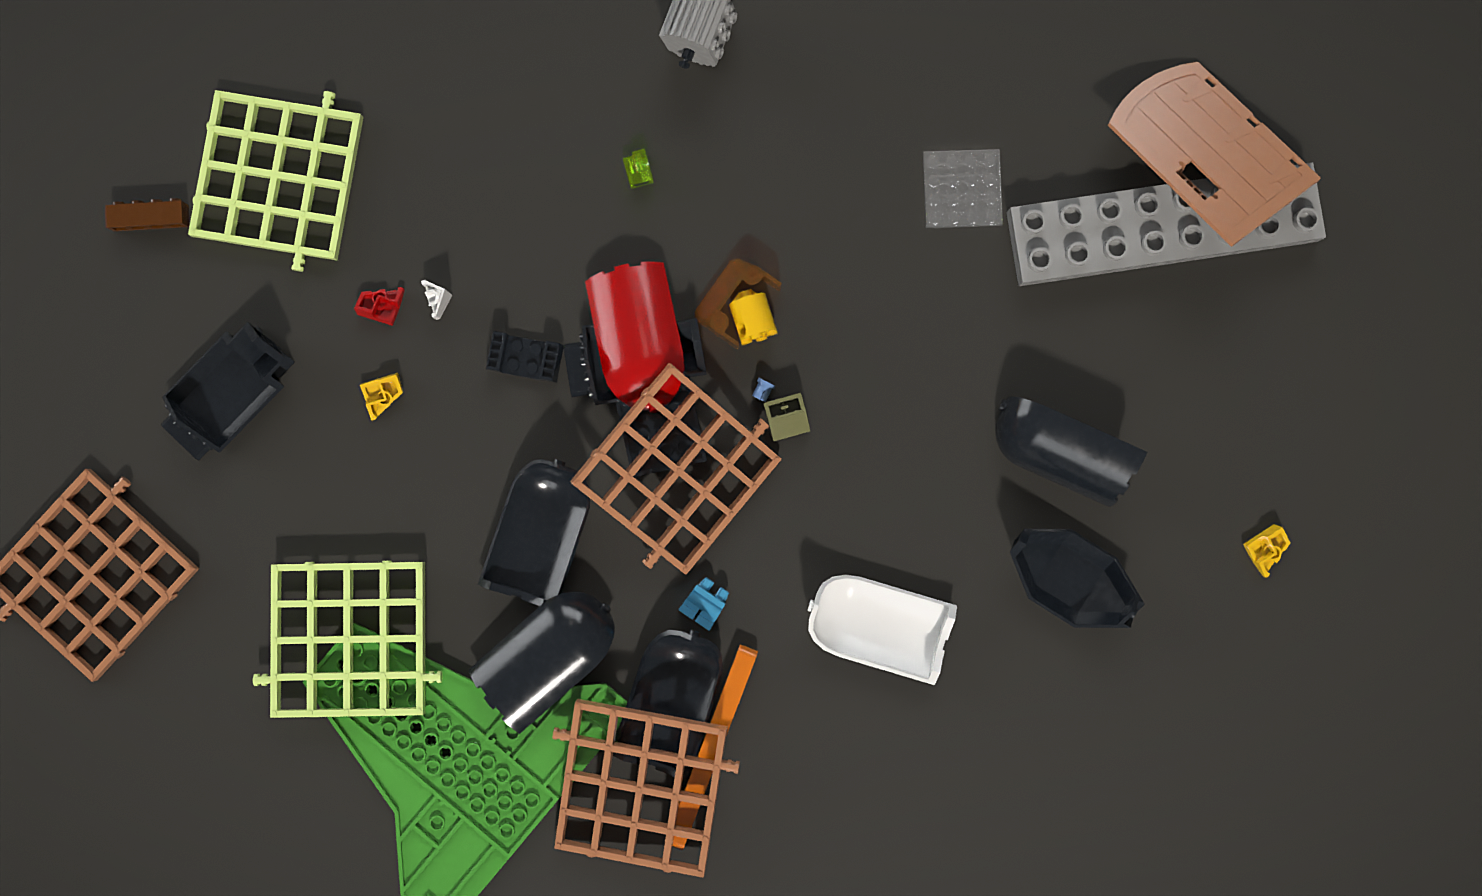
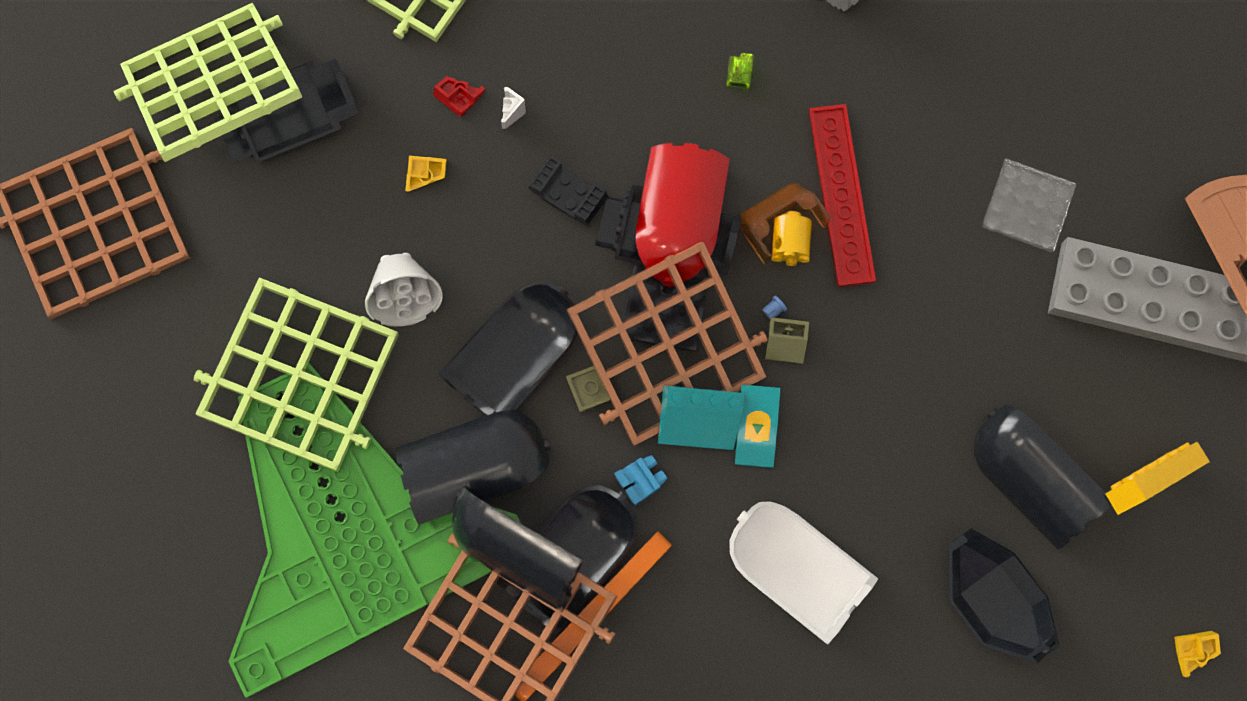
camera: 15 degrees right, 10 degrees down
(136, 397) = (209, 80): none -> yellowish green piece
(408, 522) = (402, 292): none -> white cone
(615, 731) = (514, 550): none -> black panel
(620, 539) = (587, 389): none -> olive plate
(735, 524) = (700, 417): none -> teal slope
(783, 252) = (842, 195): none -> red plate
(791, 509) = (758, 427): none -> teal slope
(1177, 410) = (1156, 476): none -> yellow brick

